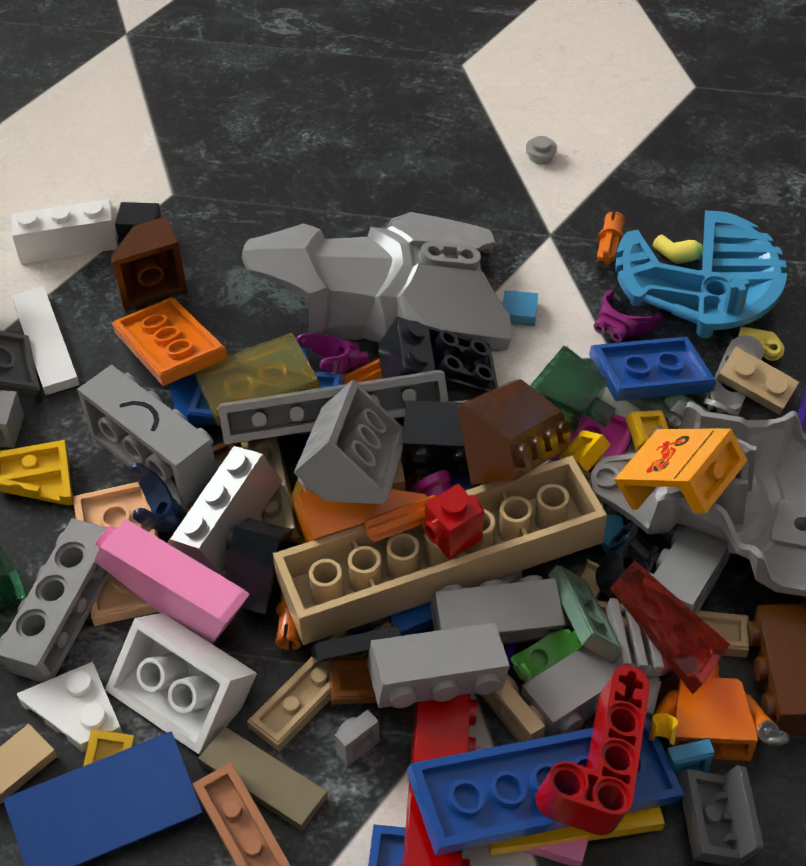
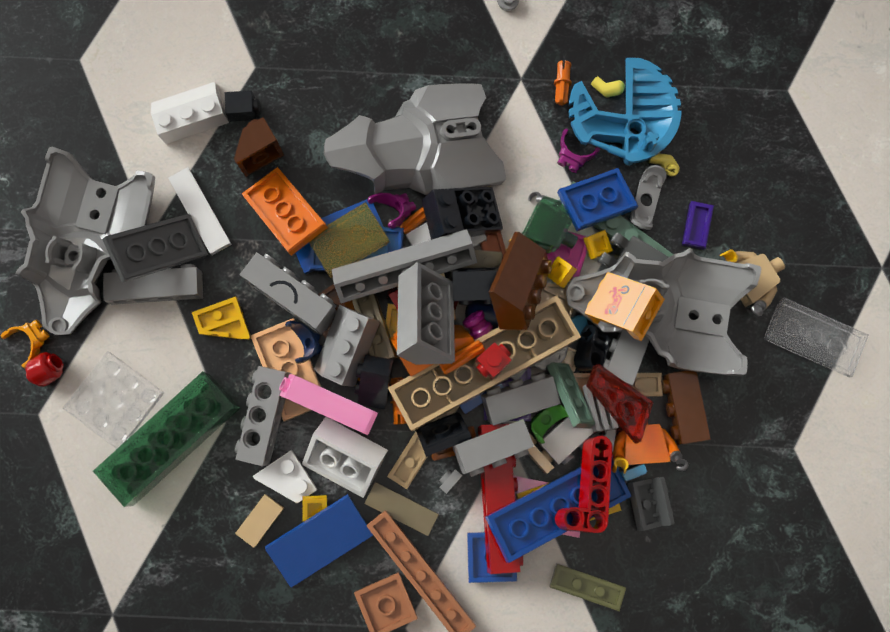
camera: 10 degrees left, 30 degrees up
(521, 306) = (507, 149): dark azure tile -> none
(757, 380) = (663, 198): tan plate -> none

